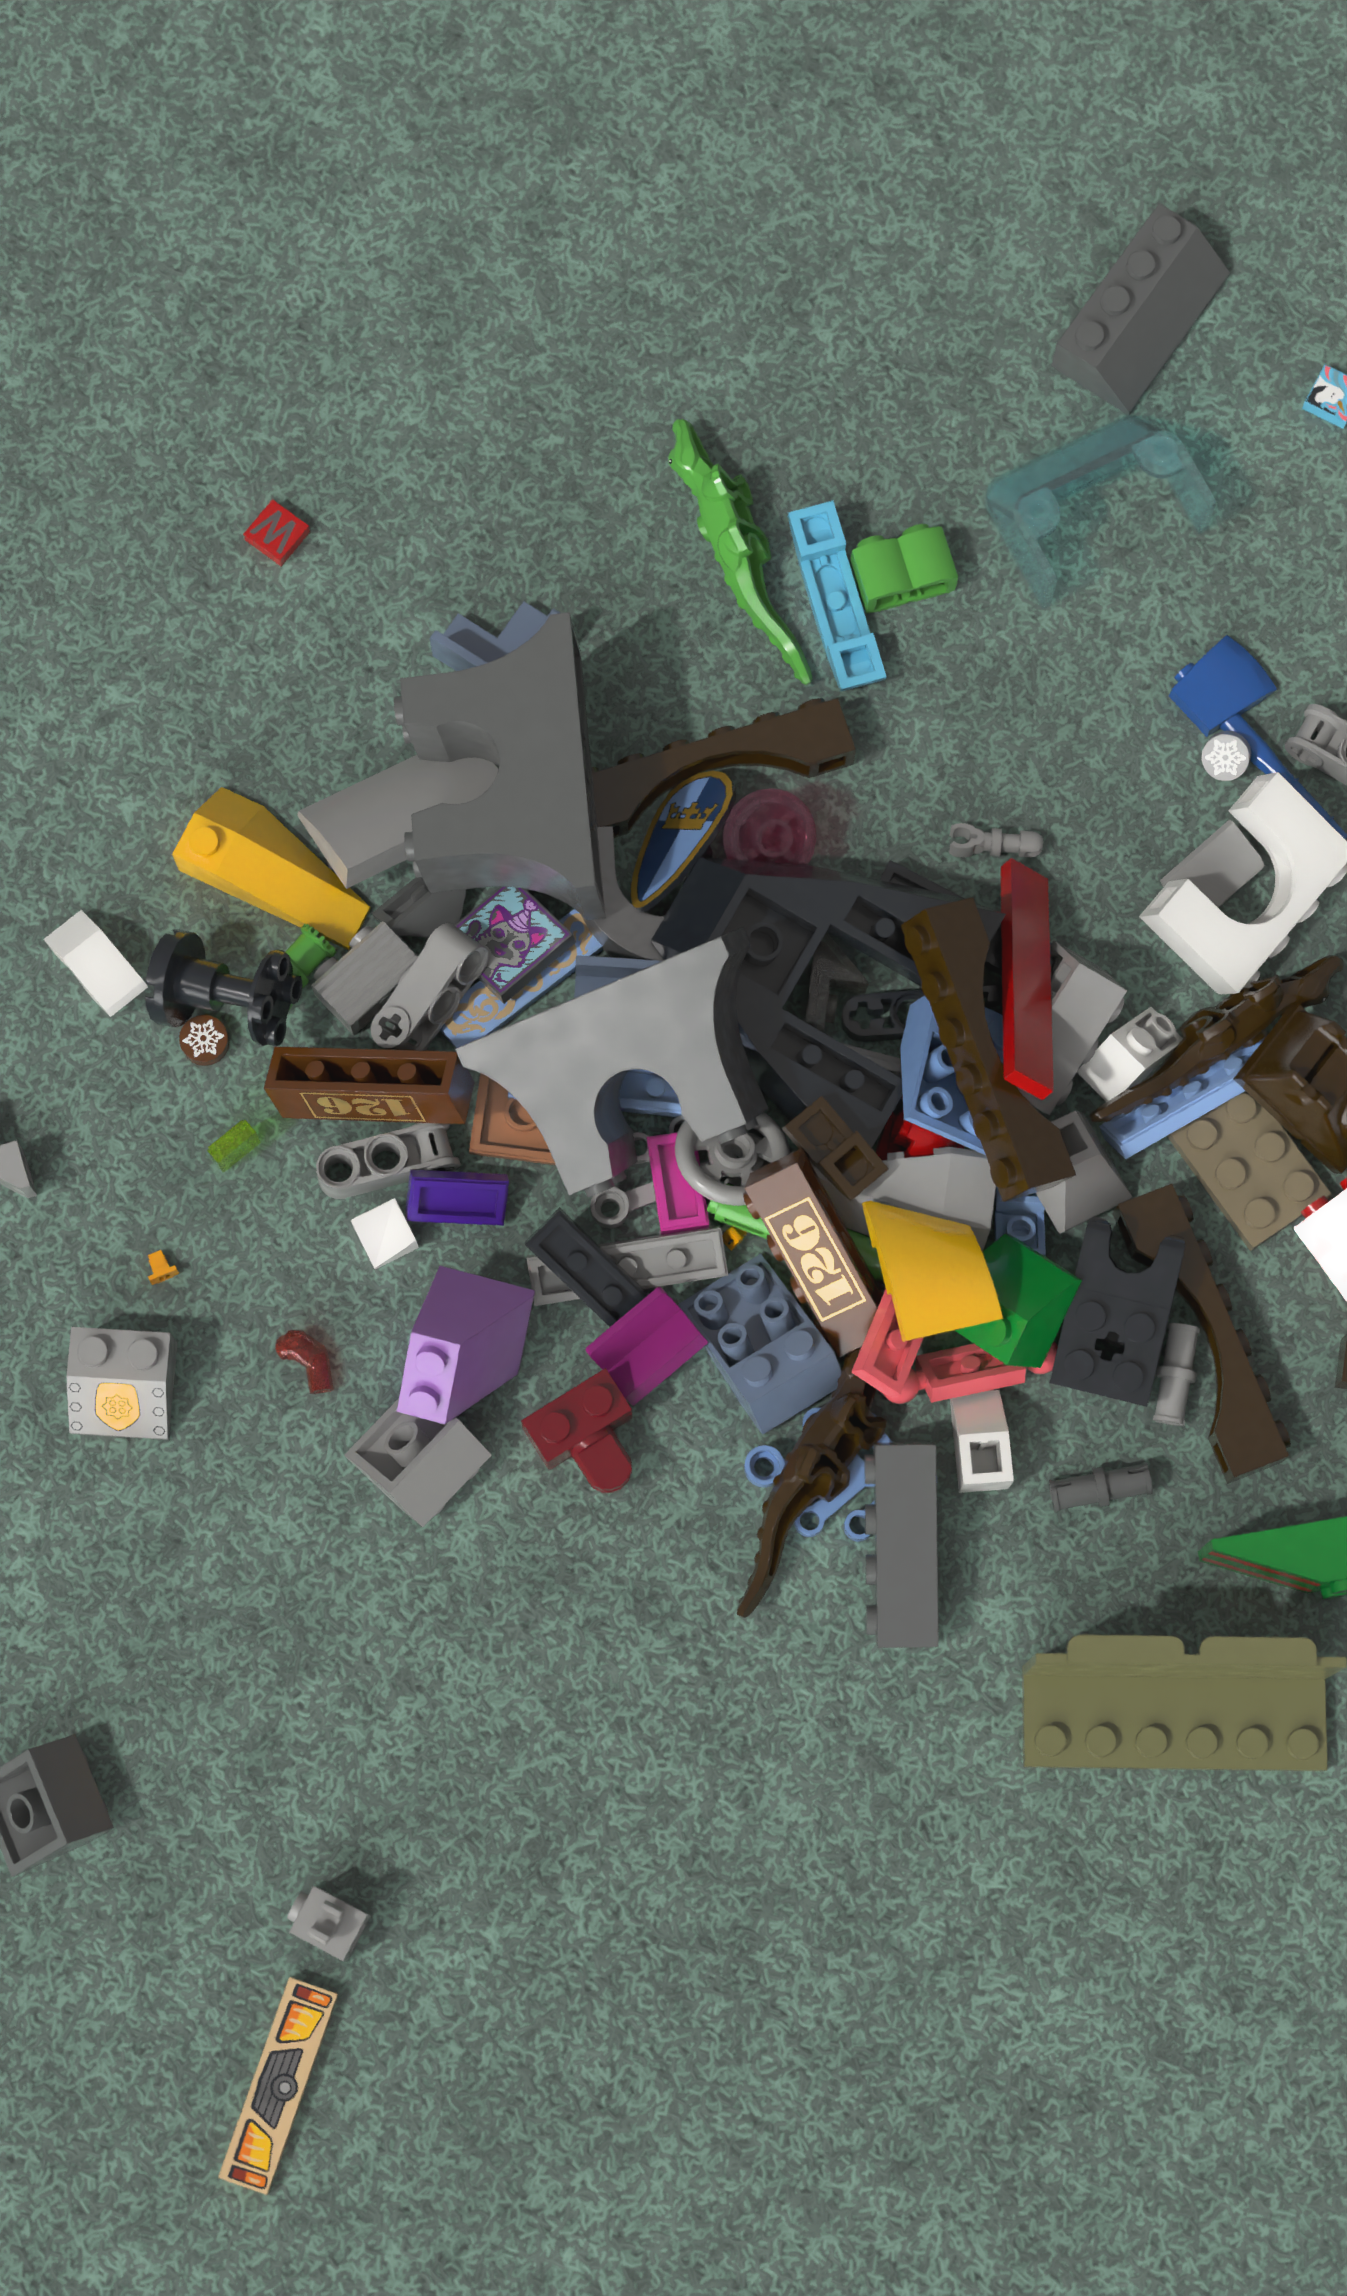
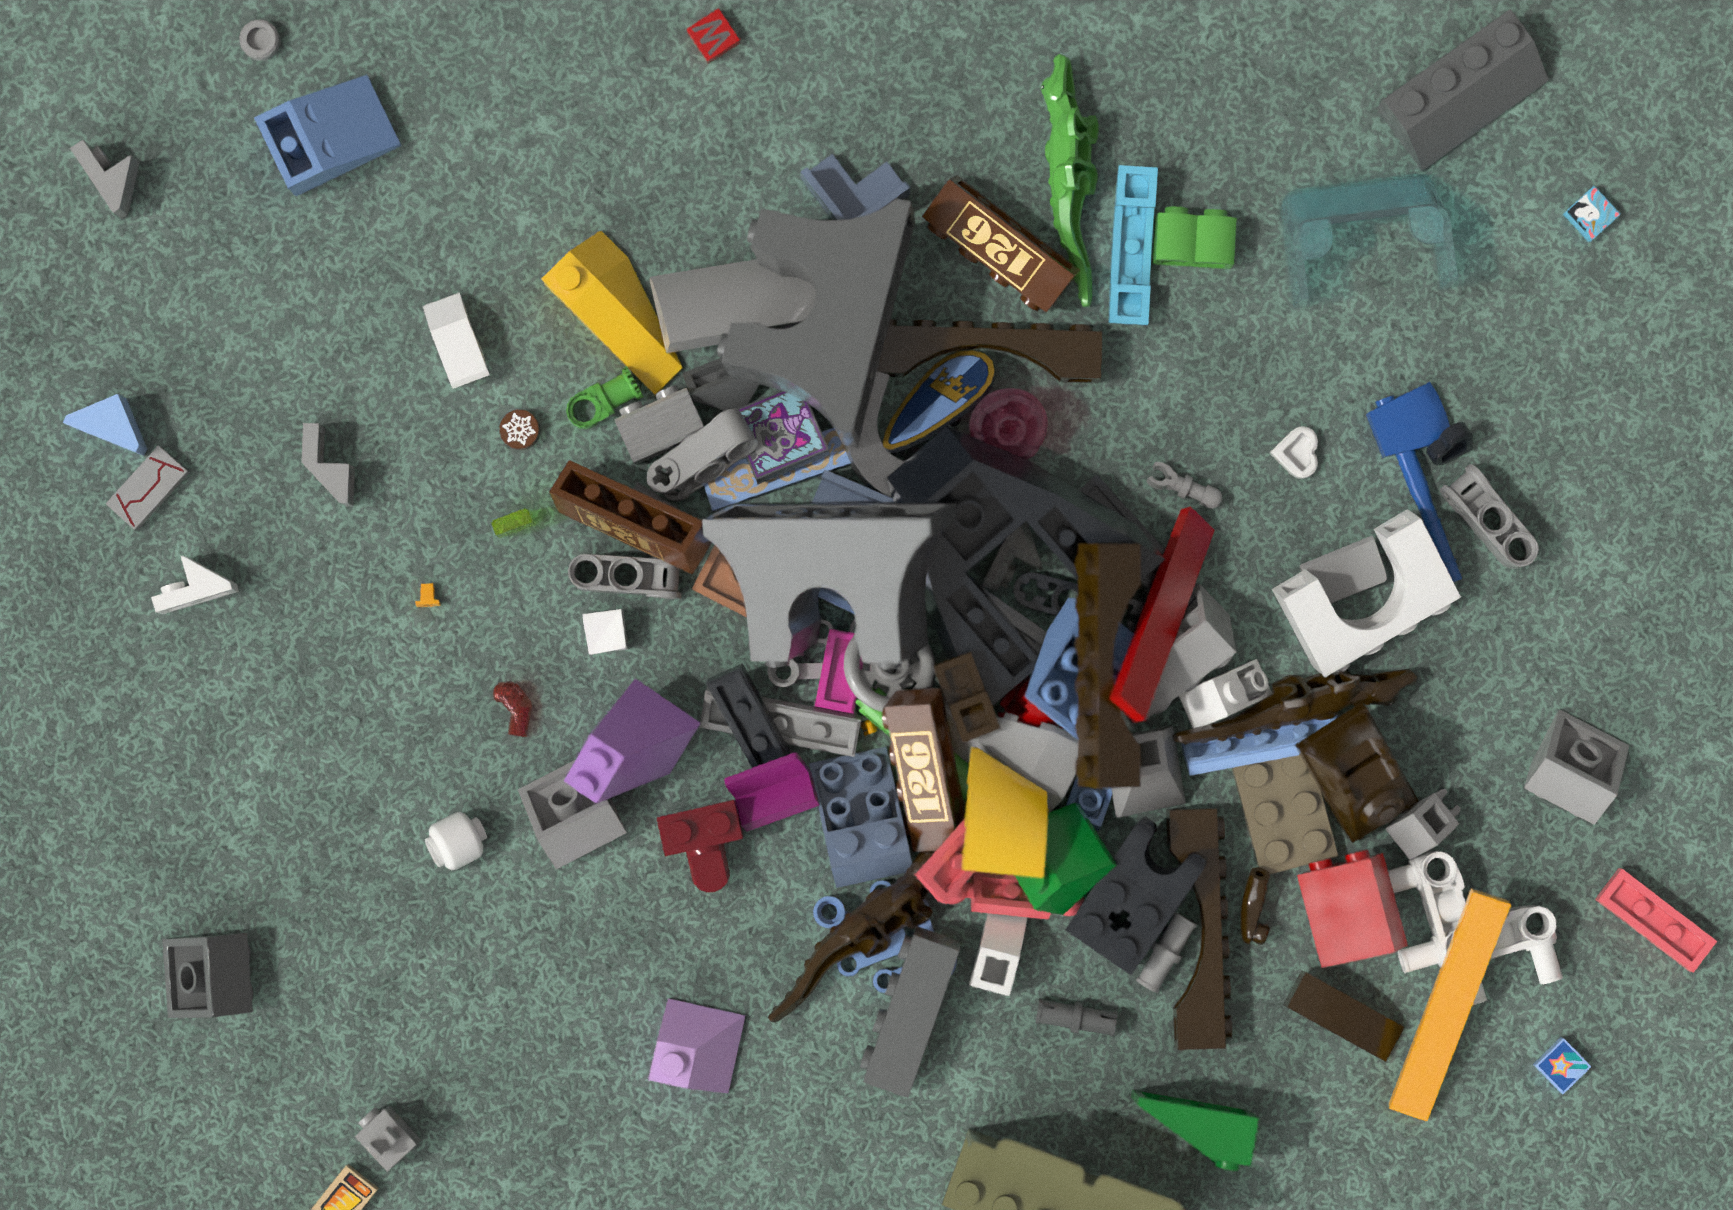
camera: 20 degrees right, 10 degrees up
(120, 1382) = (367, 677): light grey slope -> none
(188, 981) = (518, 382): black piece -> none
(291, 1537) = (455, 840): none -> white head
(457, 1197) = (669, 624): dark purple tile -> none
(665, 1682) = (696, 1047): none -> lavender slope
(685, 644) = (1000, 244): none -> reddish brown brick
(1108, 762) = (1297, 452): none -> white tile
(1226, 755) = (1391, 481): tile -> none
(1255, 1285) = (1252, 904): none -> dark brown arm
(1279, 691) = (1451, 444): none -> black tile

